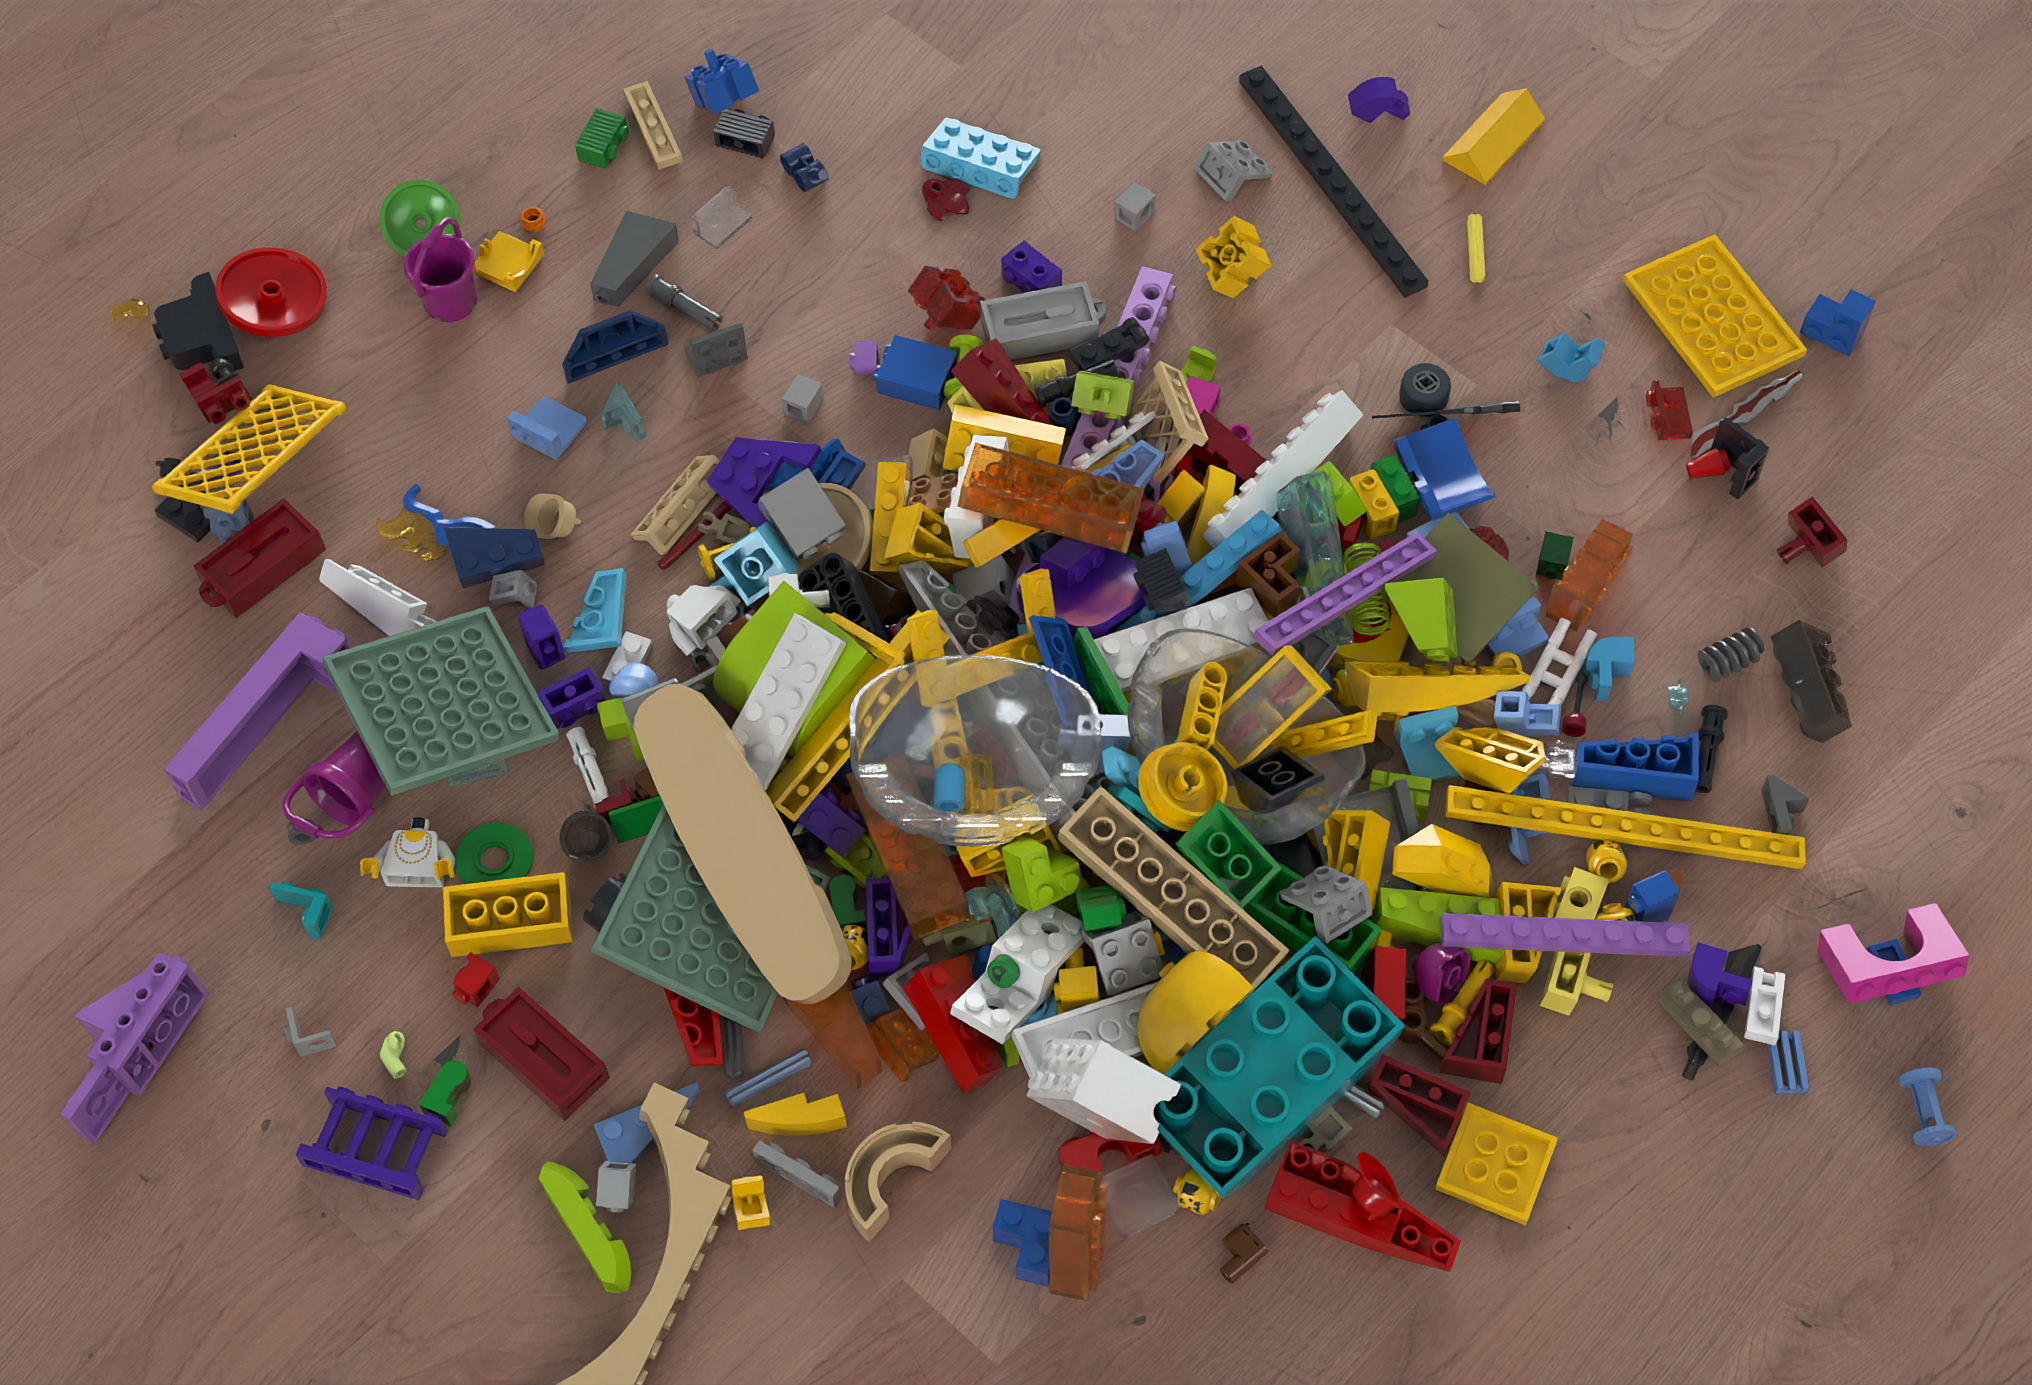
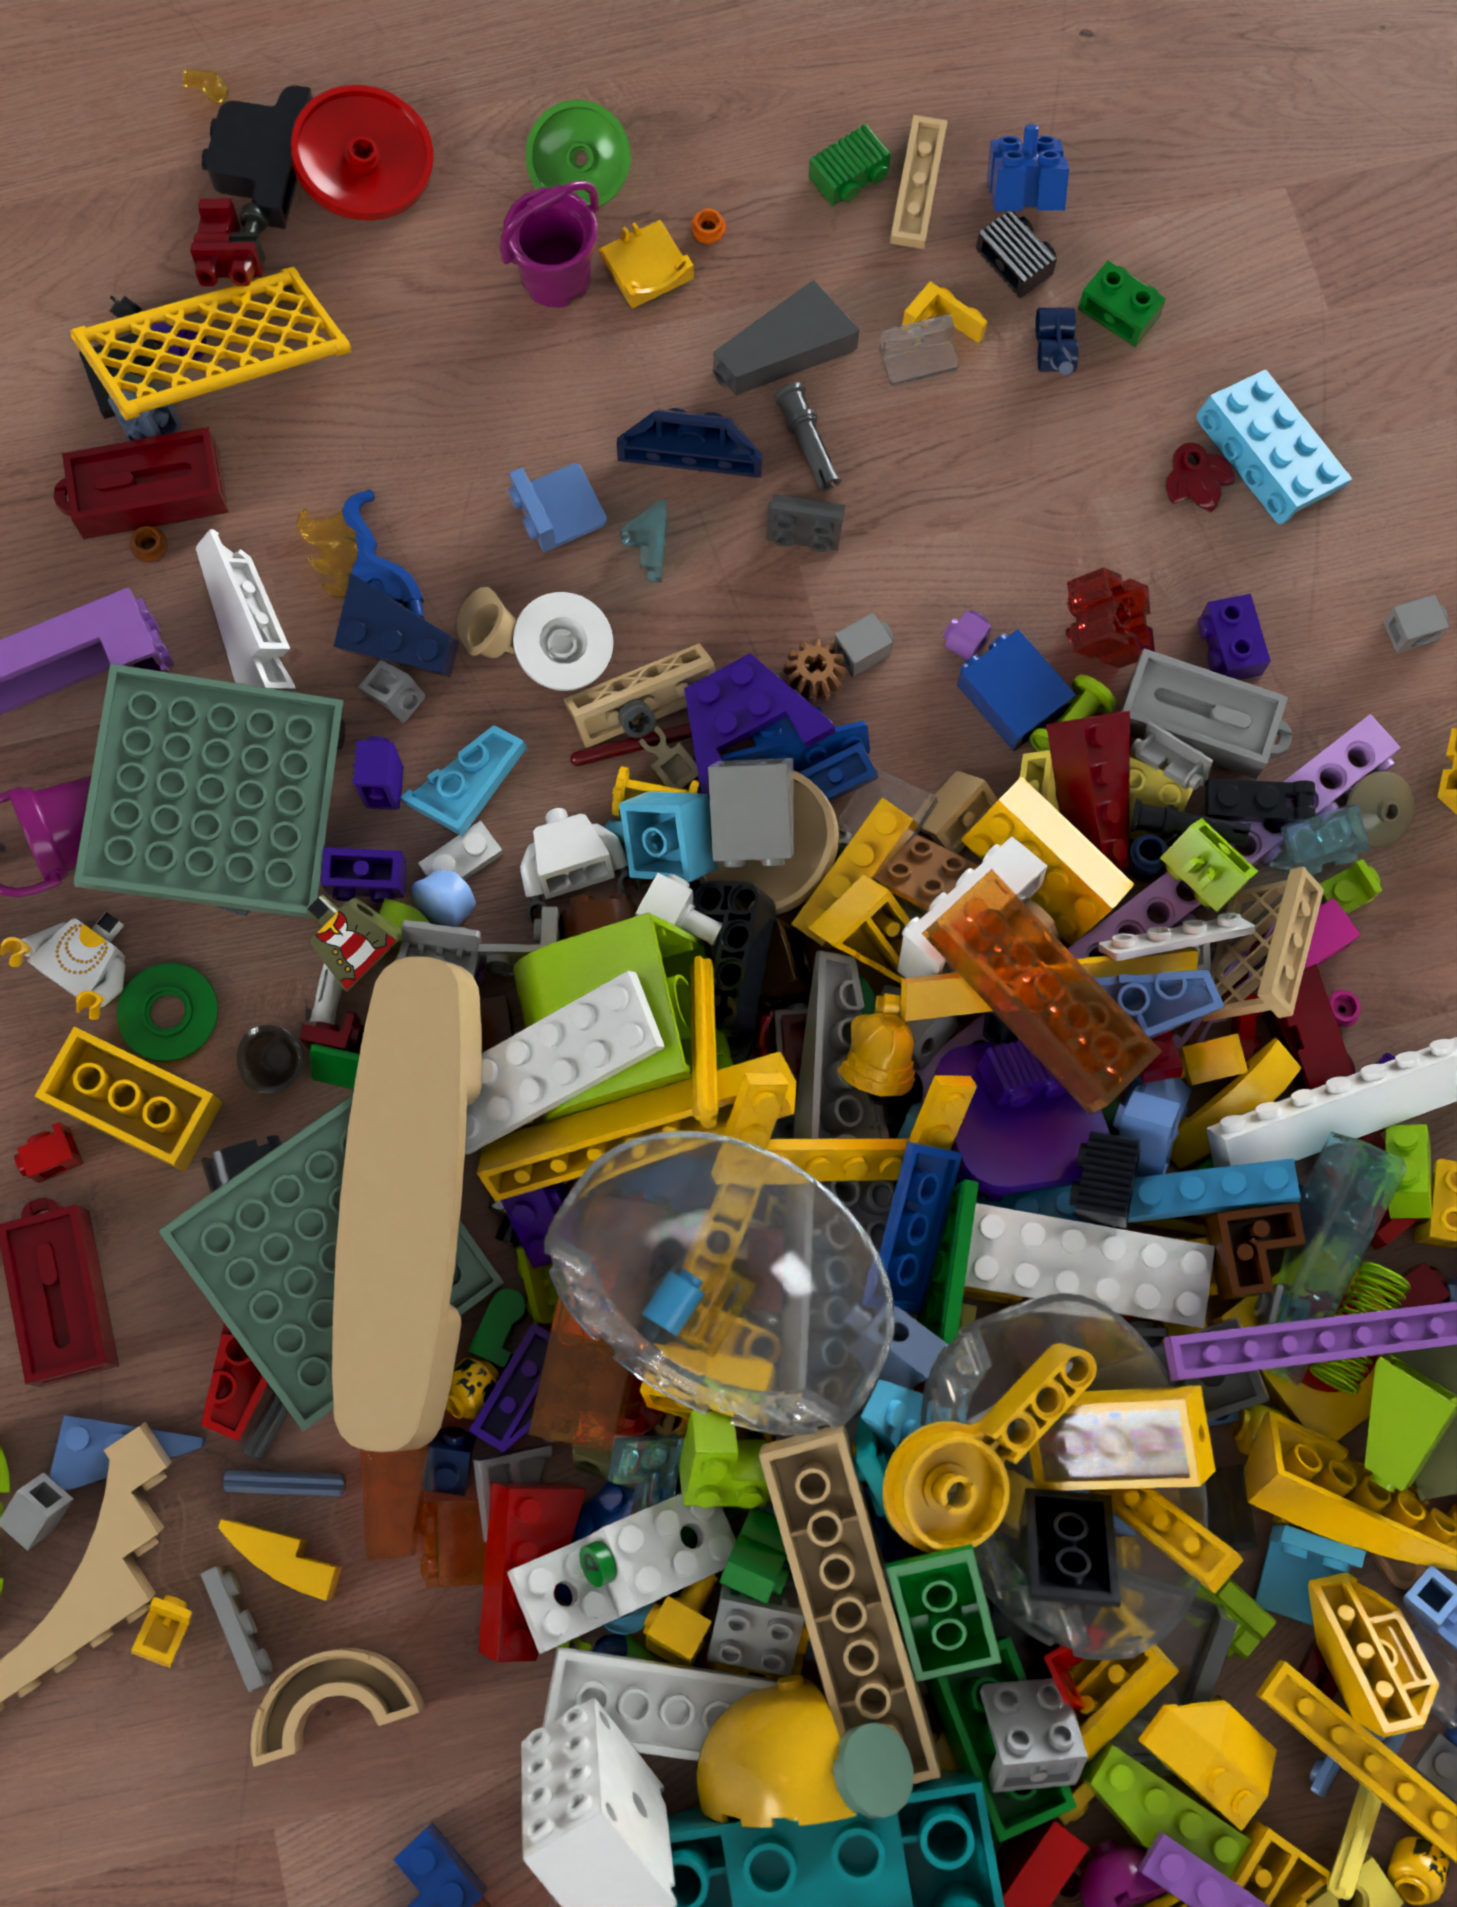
camera: 30 degrees right, 15 degrees up
(284, 589) = (143, 536): none -> dark orange plate
(593, 733) = (351, 938): none -> torso
(608, 498) = (563, 641): none -> white hat
(694, 519) = (627, 714): none -> dark grey bush
(713, 183) = (941, 302): none -> yellow bracket
(782, 426) = (809, 659): none -> medium nougat gear
(830, 126) = (1121, 303): none -> green brick
(976, 593) = (880, 1051): none -> yellow helmet
(1040, 348) = (1185, 764): none -> light grey hinge
(1162, 343) = (1323, 839): none -> clear light blue bracket
(1180, 324) = (1373, 796): none -> dark tan dish
(1246, 959) = (873, 1771): none -> sand green tile
(1321, 845) = (1059, 1663): none -> red bracket
(1559, 864) = (1354, 1844): none -> light yellow axle

